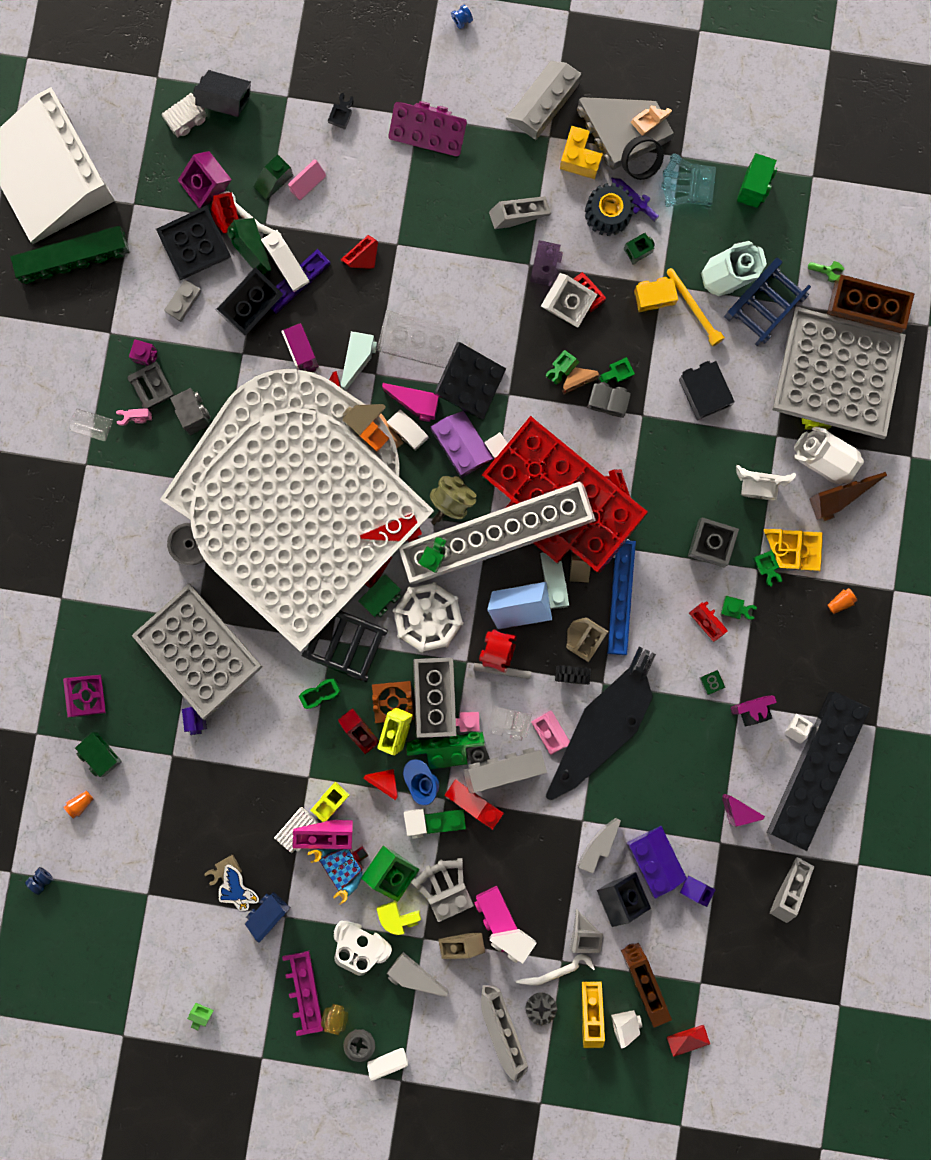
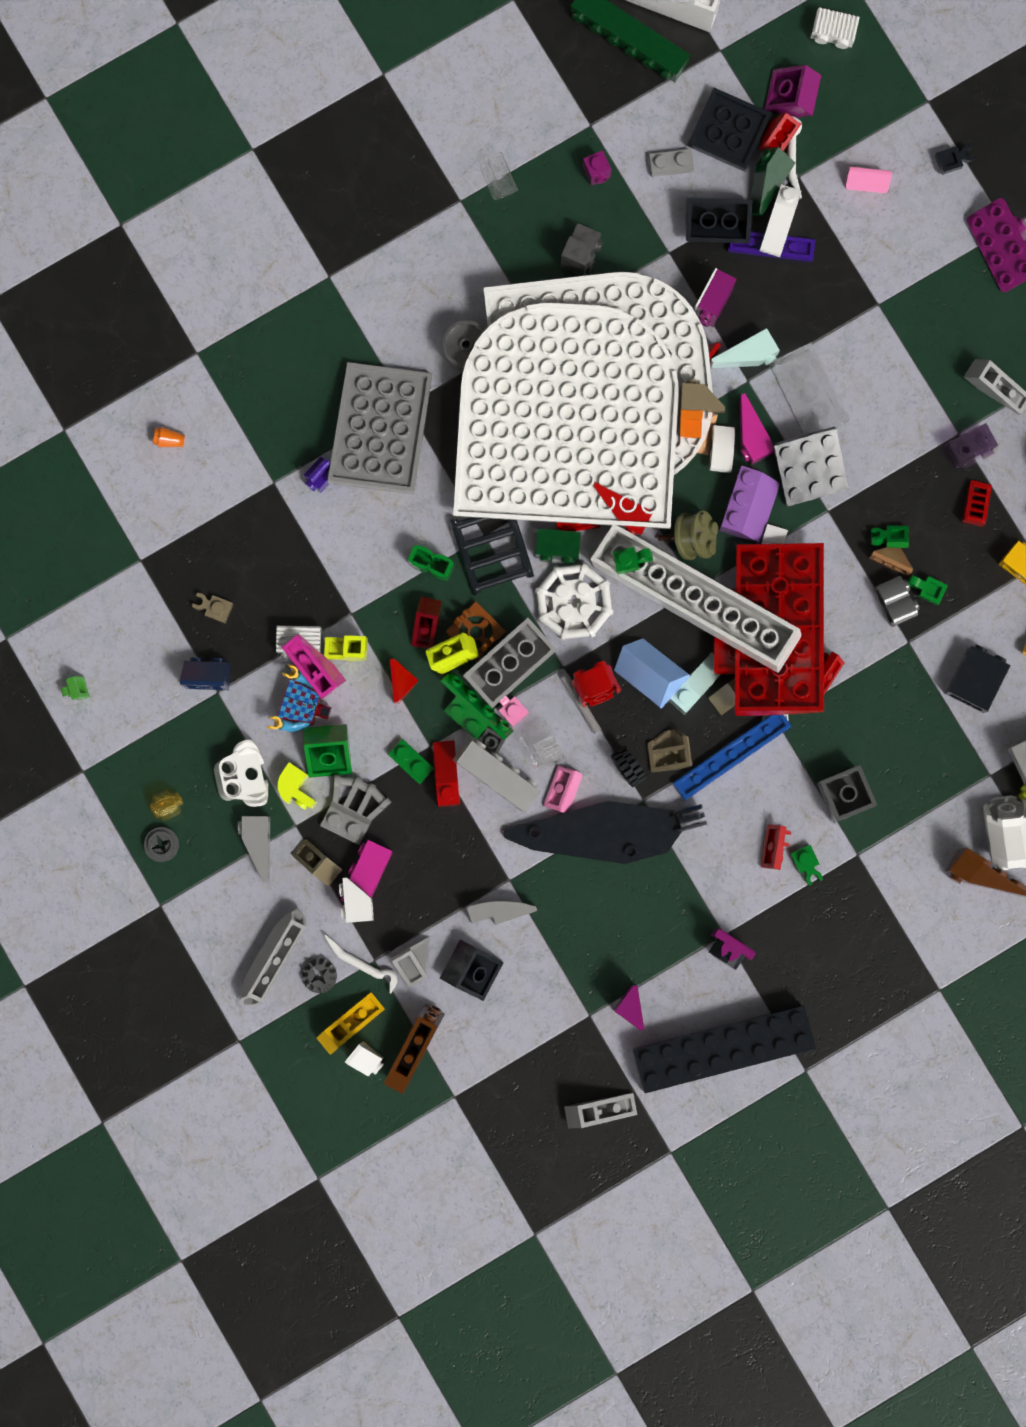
camera: 50 degrees right, 0 degrees up
(39, 880) = (77, 459): dark blue wheel -> none
(96, 682) = (282, 366): magenta piece -> none
(97, 755) = (222, 419): dark green brick -> none
(137, 415) = (539, 209): bright pink plate -> none
(155, 381) = (580, 201): dark grey plate -> none
(222, 93) = (882, 43): black brick -> none
(233, 890) = (203, 631): sticker -> none
(273, 177) = (845, 149): dark green slope -> none
(305, 992) = (168, 761): magenta hinge -> none
(363, 254) = (843, 282): red slope -> none
(387, 1064) = (165, 881): white slope -> none
(415, 823) = (388, 736): white brick -> none
(421, 782) = (427, 711): blue piece -> none
(569, 300) = (955, 493): white slope -> none
(657, 862) = (528, 972): dark purple slope -> none
(688, 1040) = (396, 1125): red slope -> none
(697, 891) = (531, 1028): dark purple brick -> none
(712, 682) = (724, 894): dark green tile -> none
(760, 484) = (934, 795): white piece -> none
(766, 564) = (867, 858): green plate -> none
(796, 548) = (903, 873): yellow slope -> none
(798, 729) = (746, 1003): white slope -> none
(842, 601) = (891, 951): orange cone -> none

